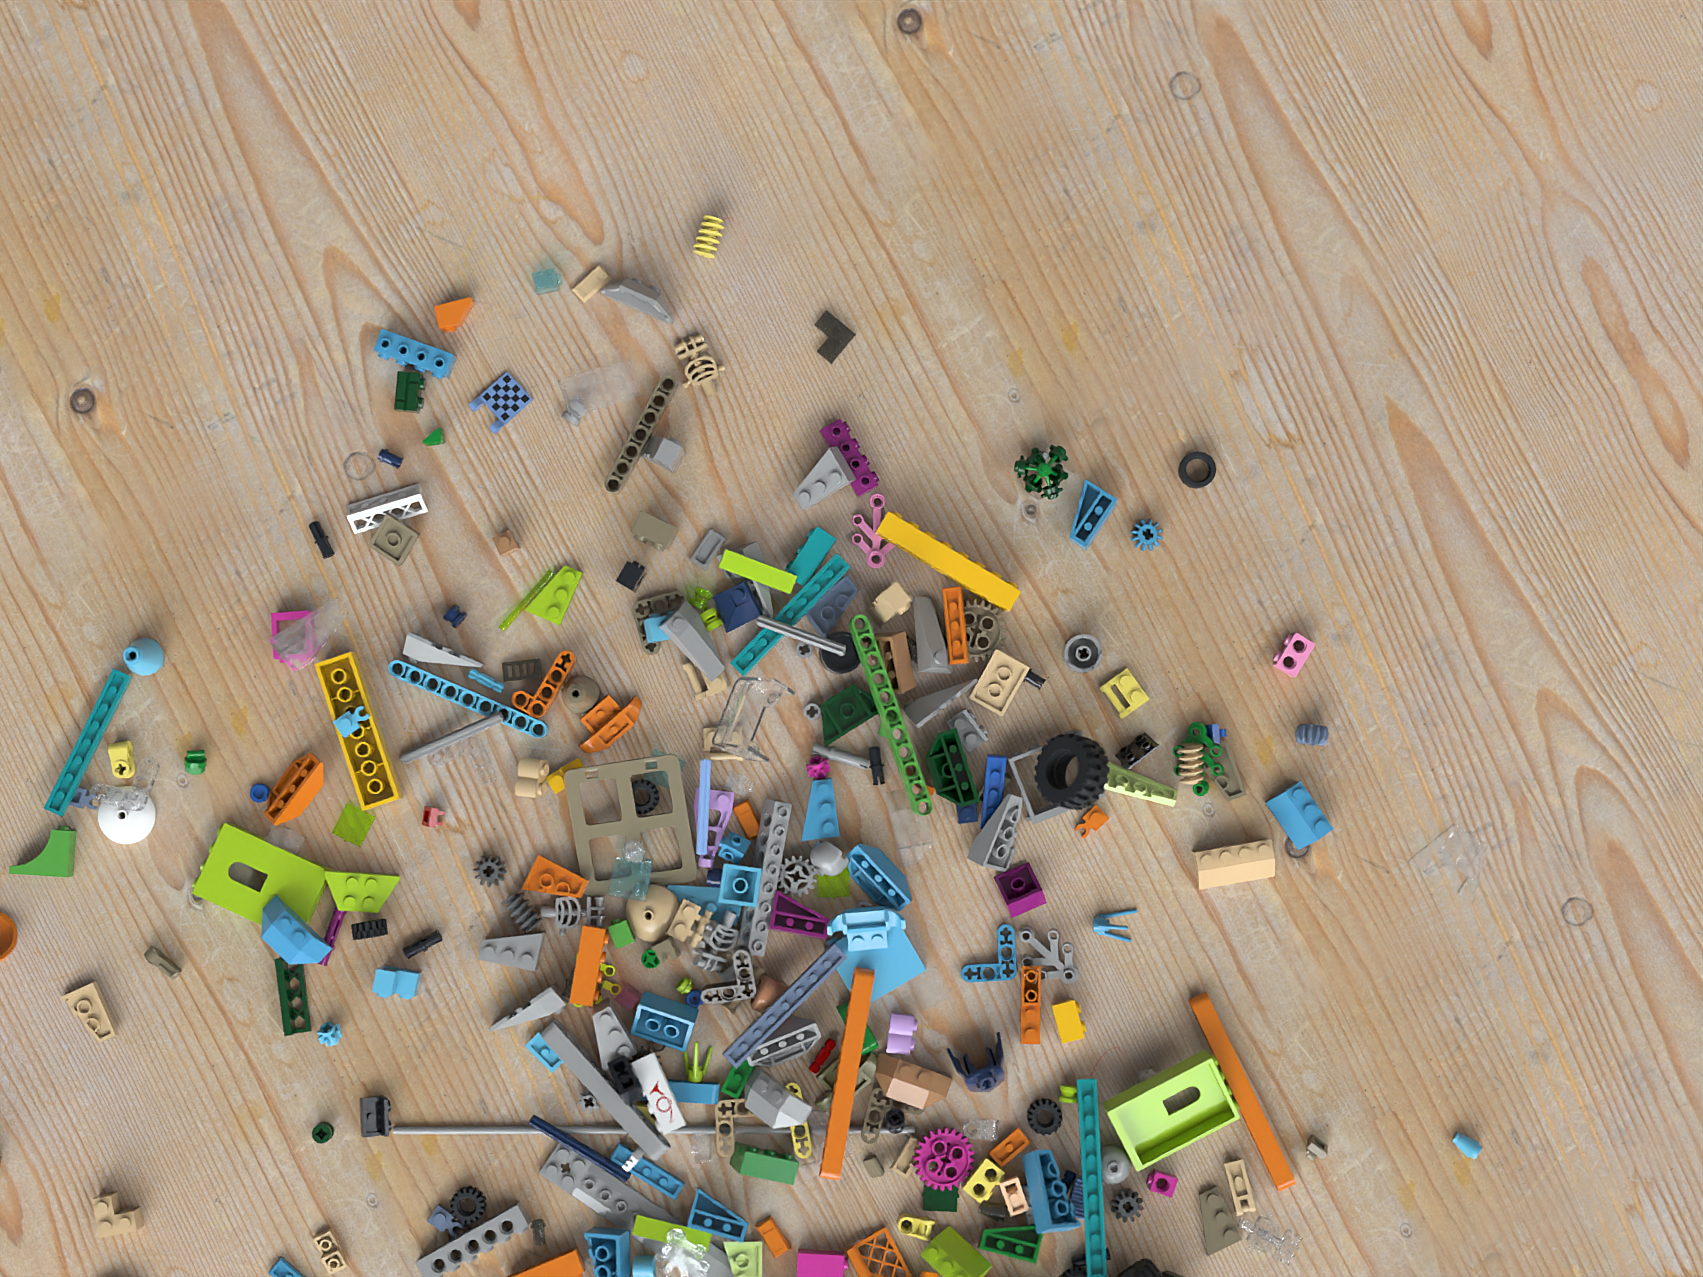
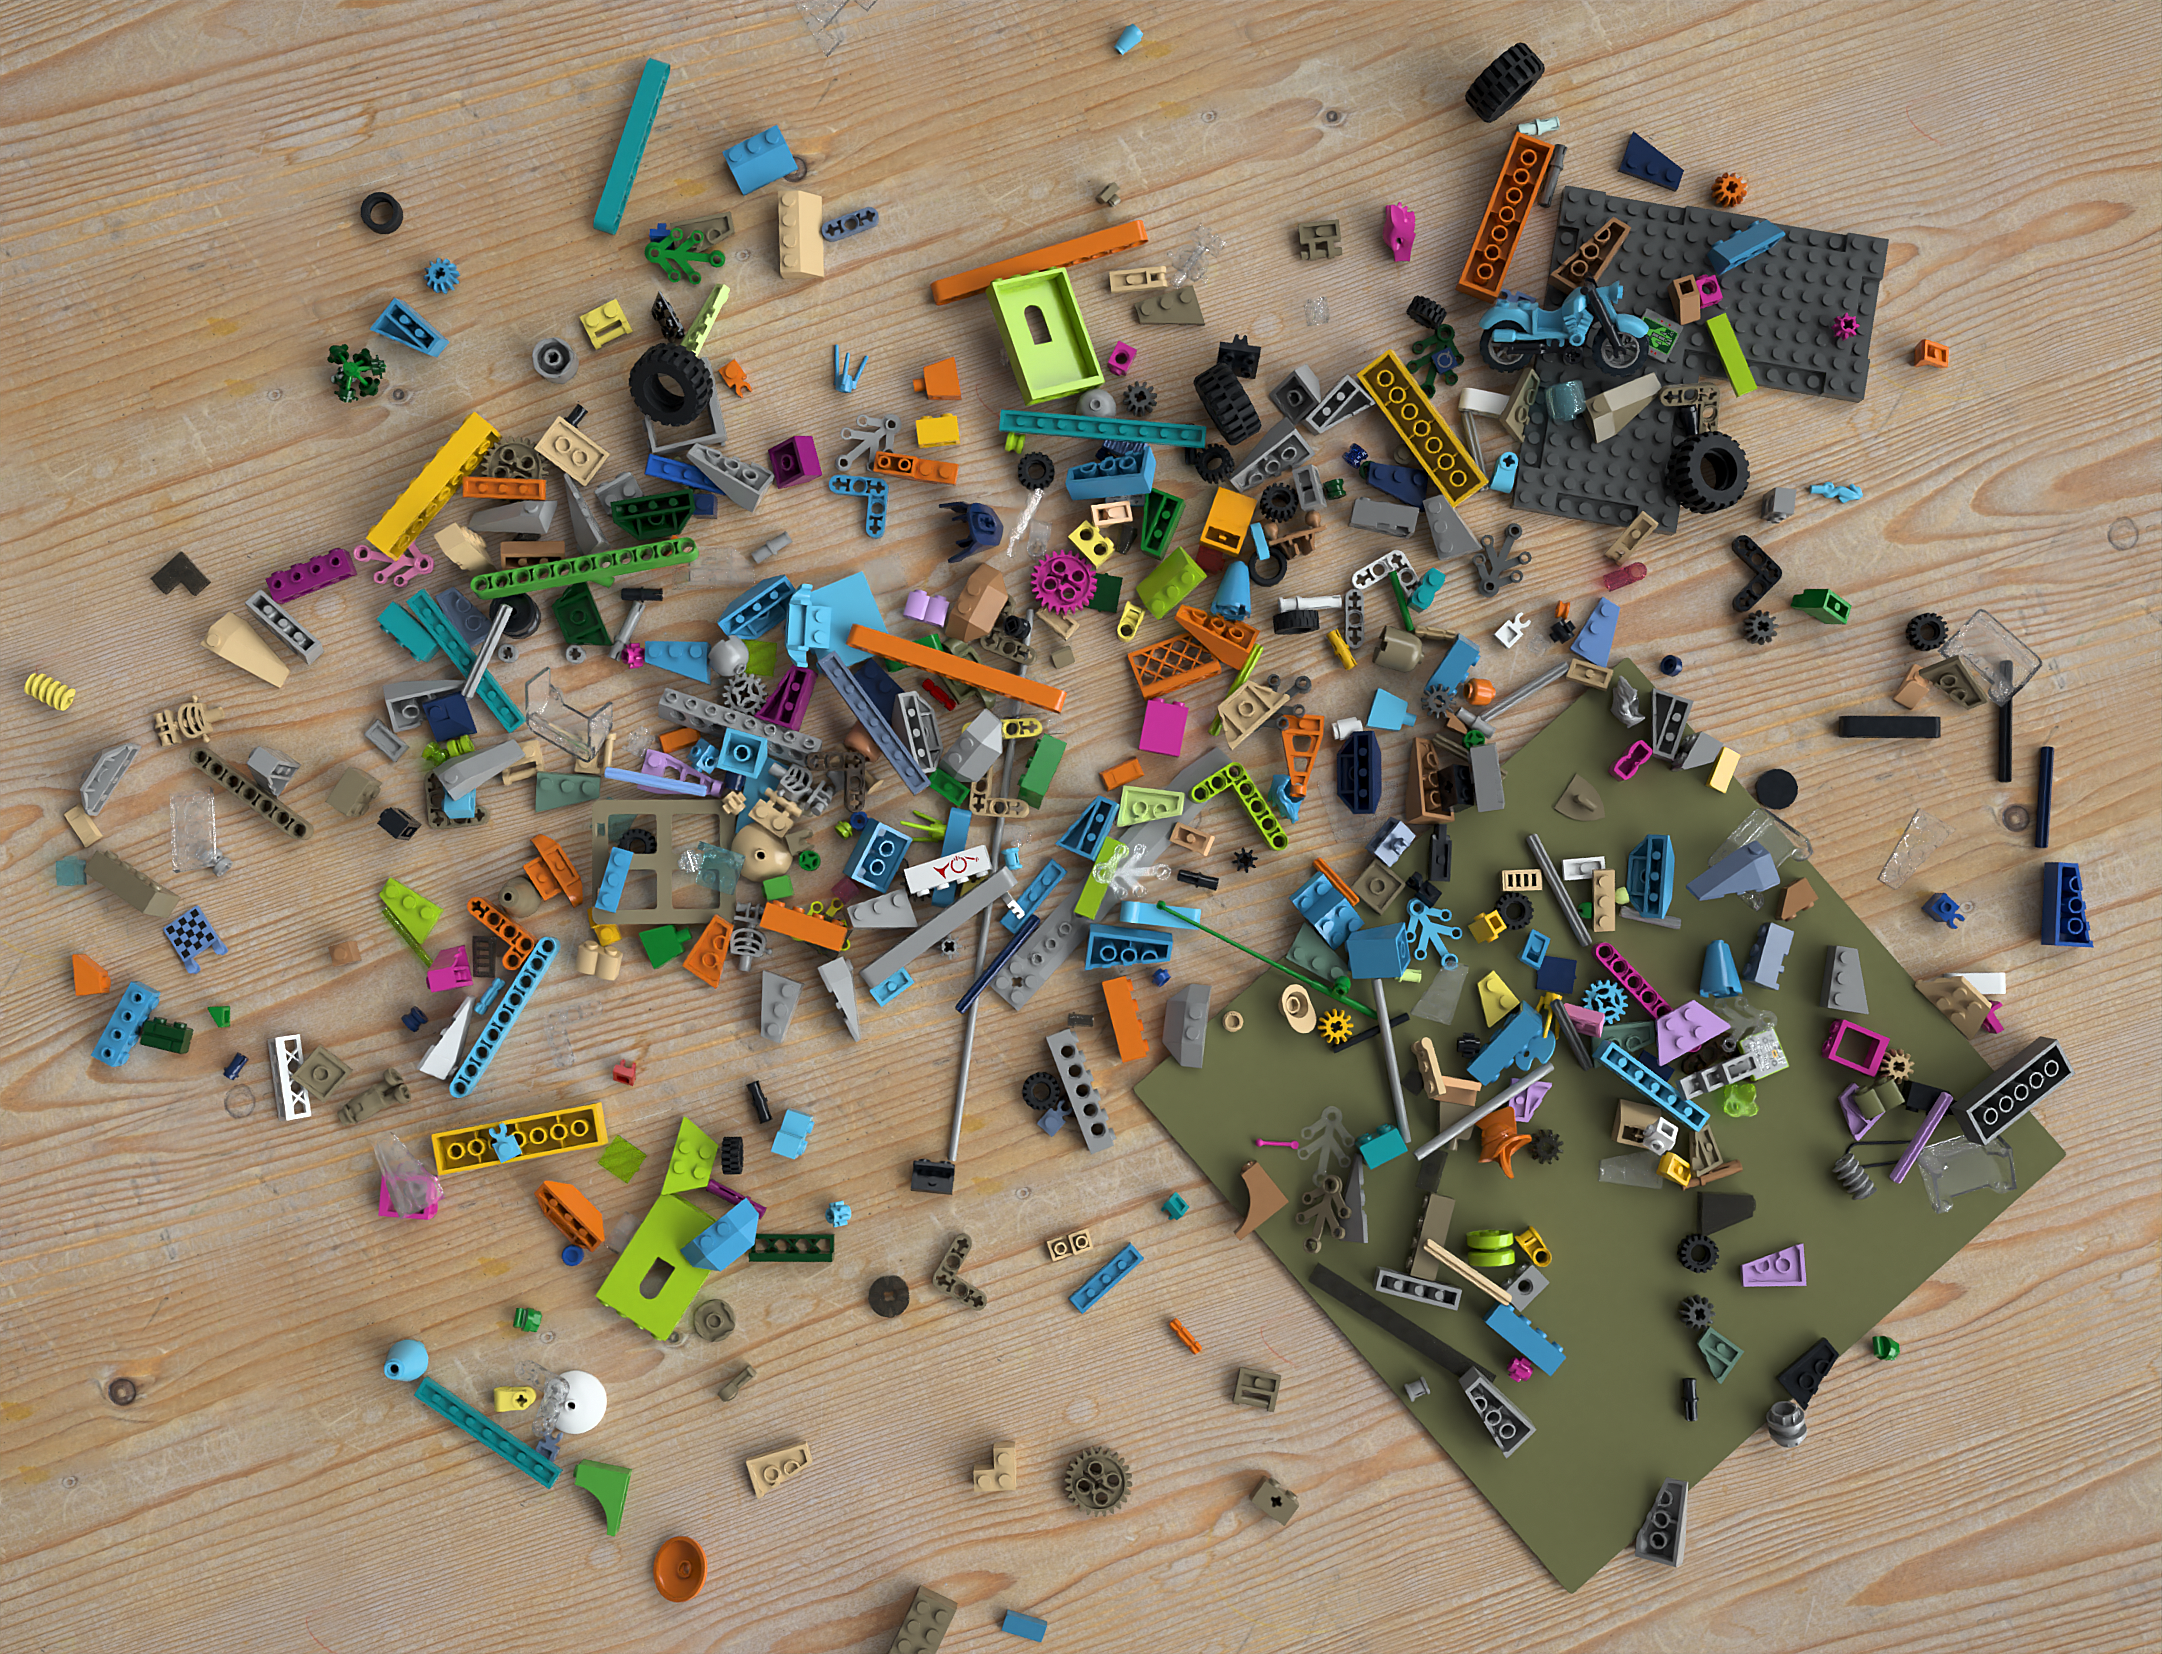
camera: 80 degrees left, 0 degrees up
(217, 932) = (715, 1320): none -> dark tan tile
(250, 1094) = (886, 1284): none -> clear smoke plate
(289, 1145) = (951, 1272): none -> dark tan beam
(321, 539) = (311, 1152): black axle -> none
(326, 1129) = (942, 1231): dark green wheel -> none
(376, 589) = (374, 1099): none -> dark tan piece
(452, 737) = (542, 1039): light grey axle -> none
(494, 876) = (697, 1014): dark grey gear -> none
(503, 645) = (449, 970): none -> dark pink wedge
(522, 911) = (738, 991): dark grey piece -> none
(542, 338) = (131, 884): none -> dark tan wedge
(555, 835) = (664, 944): none -> green torso
(605, 787) = (614, 879): none -> dark azure brick
(625, 1080) = (927, 902): black brick -> none
(679, 1146) = (1011, 858): none -> medium azure bush
(685, 721) = (564, 789): none -> sand green wing
(693, 881) = (733, 803): none -> tan gear
(757, 571) = (411, 687): lime tile -> none
(777, 402) = (240, 644): none -> tan wedge
(798, 442) = (284, 627): none -> light grey brick
(821, 1000) = (878, 687): none -> dark blue plate
(825, 479) = (327, 603): light grey wedge -> none
(937, 879) = (771, 547): none -> light grey pin
(994, 1114) = (1025, 517): none -> clear wing
(1009, 1147) = (1062, 512): orange plate -> none
(1116, 1015) = (940, 381): none -> orange torso
(1191, 763) = (686, 262): tan piece -> none
(1254, 922) = (852, 216): none -> sand blue beam
(1294, 692) = (631, 146): none -> teal beam
(1297, 657) = (591, 141): bright pink brick -> none
(1312, 734) = (677, 133): sand blue gear -> none

